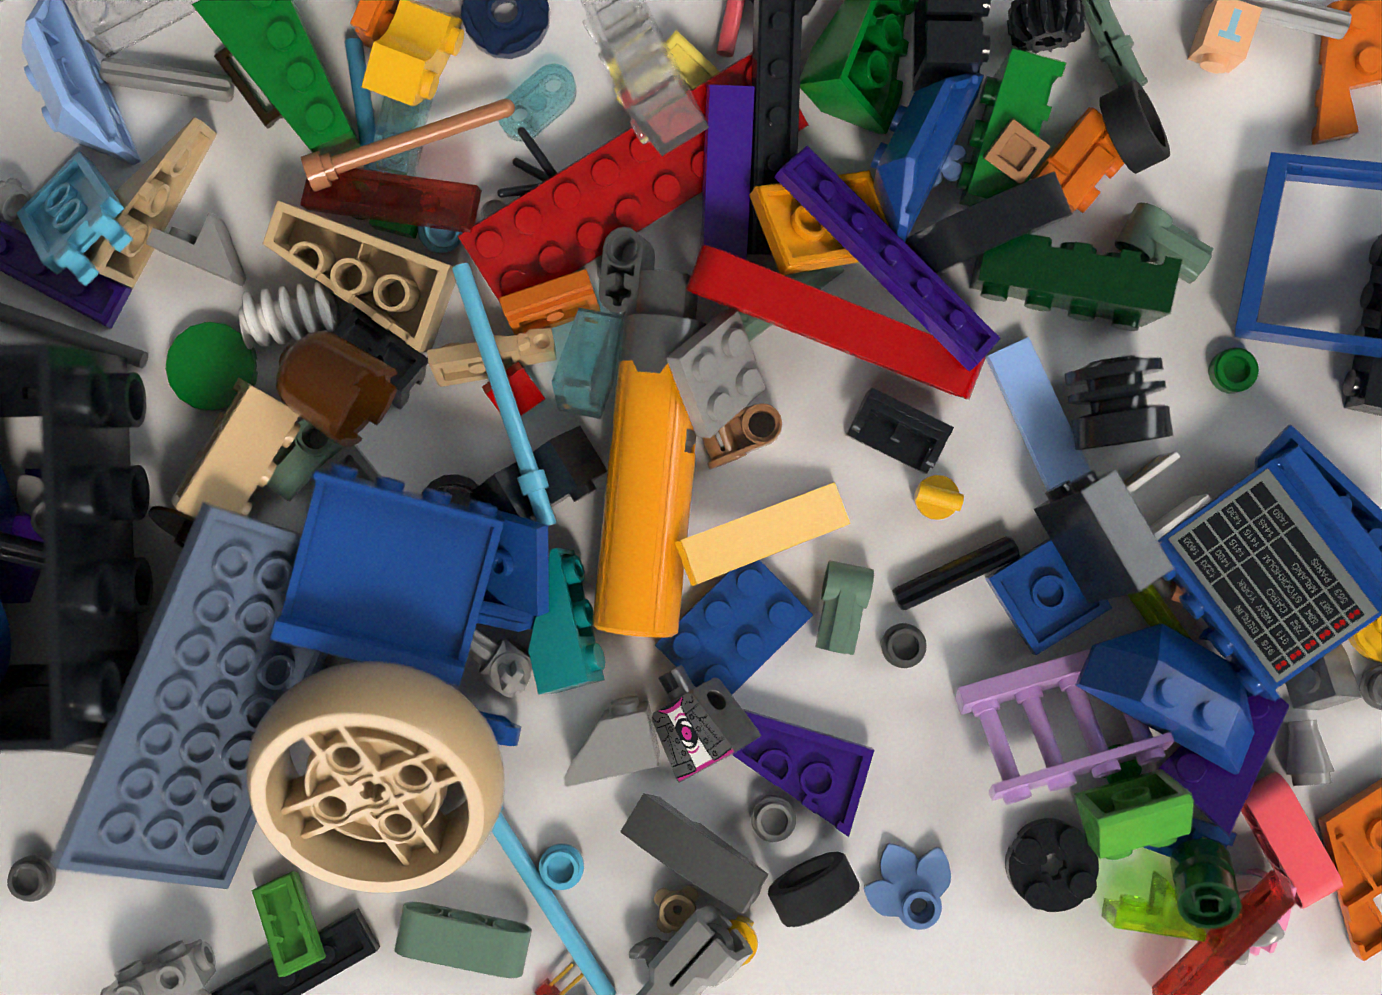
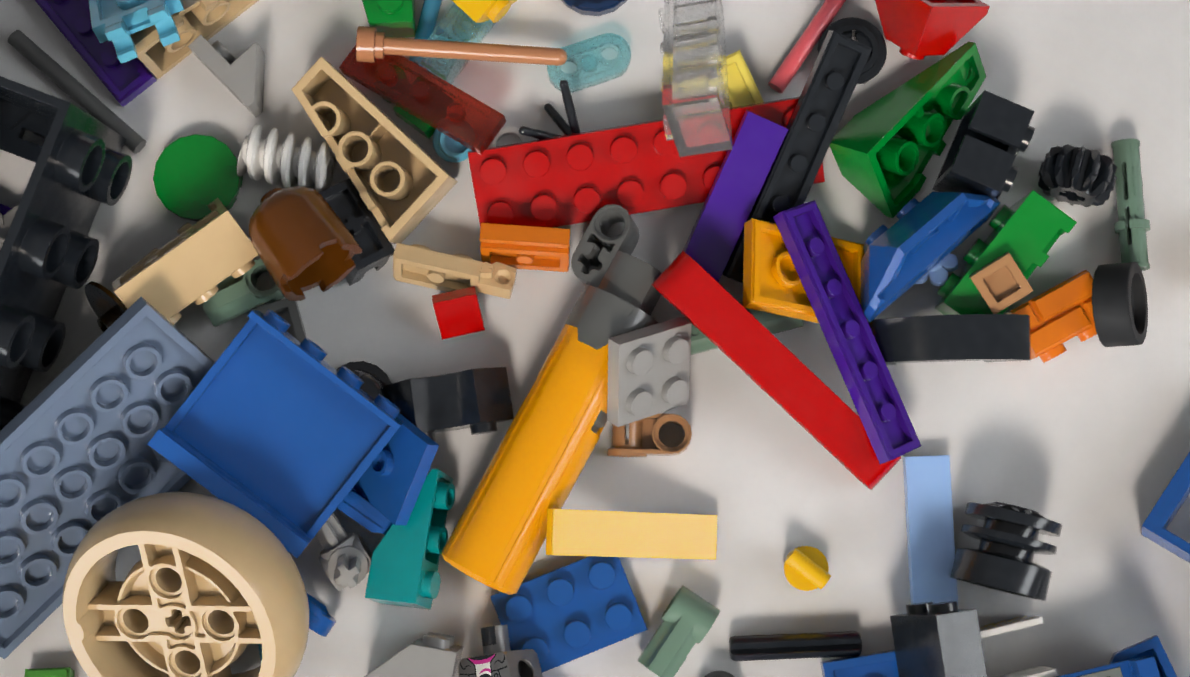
camera: 20 degrees right, 5 degrees down
(532, 480) = (442, 399): medium azure bar -> none
(588, 363) = (536, 314): clear light blue slope -> none
(899, 431) = (795, 492): black hinge -> none
(1078, 280) = (1013, 422): dark green wedge -> none
(1154, 235) = (1099, 411): sand green piece -> none
(1233, 370) = (1127, 564): green tile -> none

